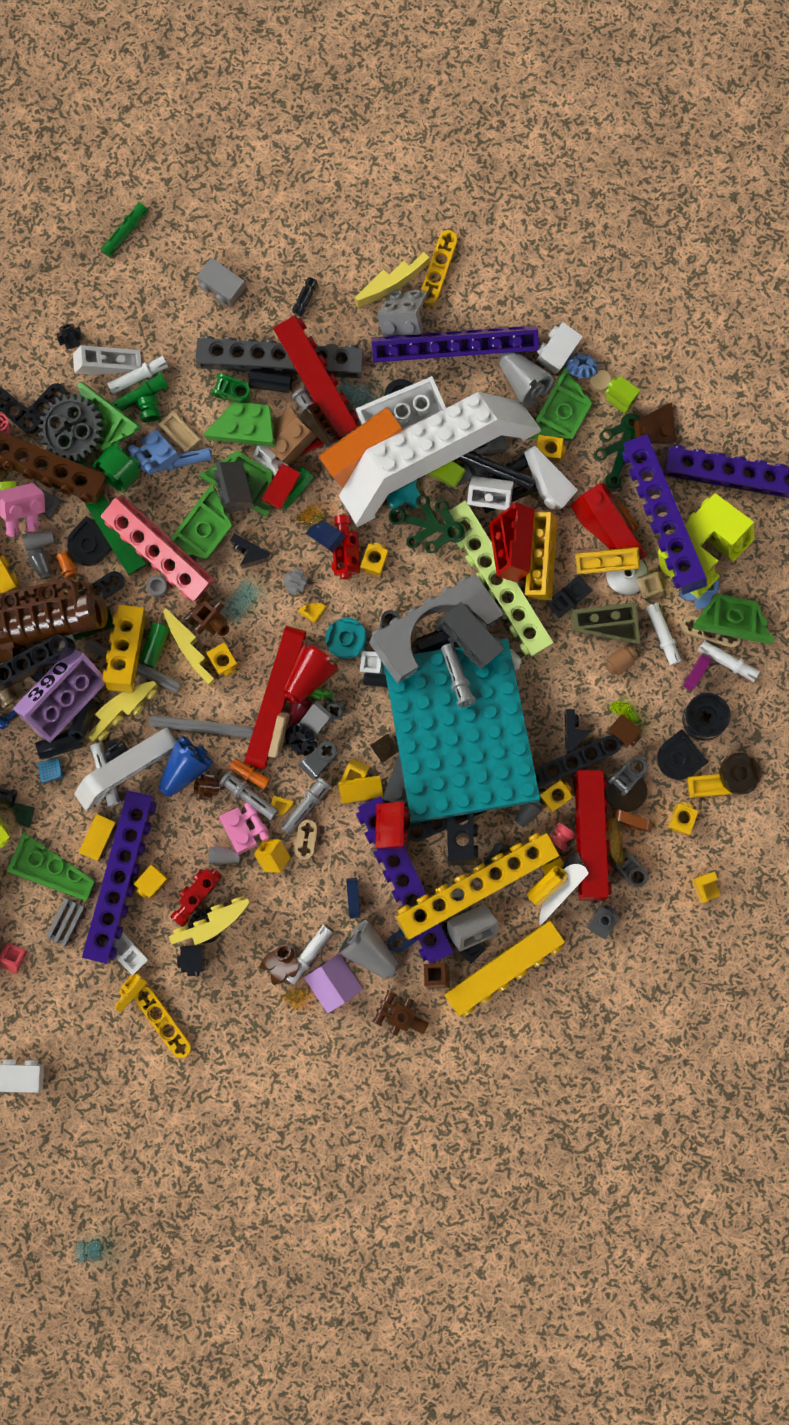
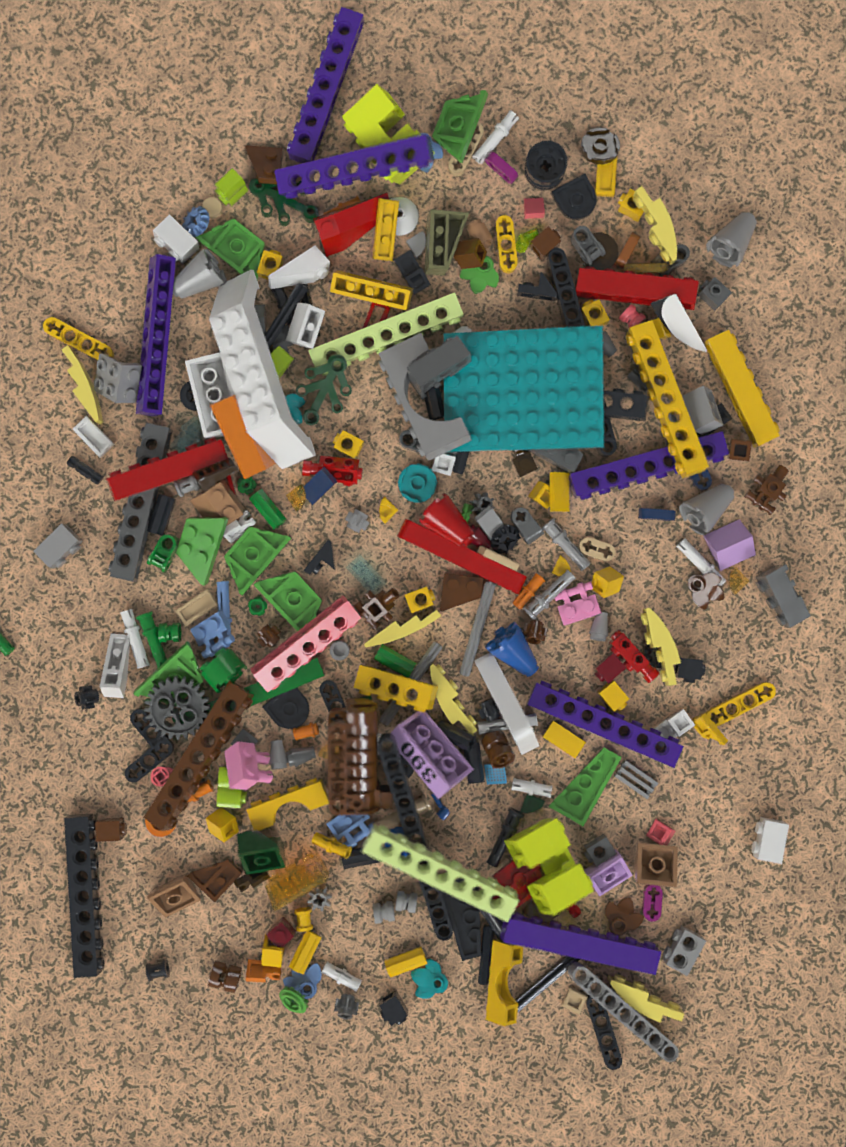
camera: 80 degrees left, 5 degrees up
(40, 811) = (532, 787): none -> white pin
(75, 766) = (498, 749): none -> reddish brown wheel
(160, 510) = (268, 636): none -> reddish brown gear
(179, 872) = (609, 668): none -> dark red brick
(191, 488) = (257, 601): none -> green plate
(234, 485) = (259, 562): dark grey slope -> none
(239, 701) = (459, 590): none -> reddish brown wing
(281, 486) = (266, 519): red tile -> none
(285, 1048) = (782, 596): none -> dark grey wedge
(310, 462) = (251, 485): none -> green plate
(341, 299) = (93, 436): none -> white tile
(390, 826) = (604, 465): red slope -> none
(460, 683) = (481, 382): light grey pin -> none
(512, 541) = (355, 312): red wedge -> none
(547, 885) = (675, 336): yellow axle -> none
(576, 668) = (480, 277): none -> bright green plate
(597, 652) = (470, 253): none -> reddish brown brick
(600, 597) = (417, 244): none -> light grey tile
(633, 692) = (510, 229): none -> yellow beam
(650, 584) = (413, 196): tan tile -> none
(656, 851) = (662, 232): none -> light yellow slope
(661, 714) = (534, 208): none -> coral slope
(663, 634) = (467, 190): white pin -> none
(664, 932) = (732, 240): none -> light grey cone
(706, 887) = (696, 195): yellow panel -> none

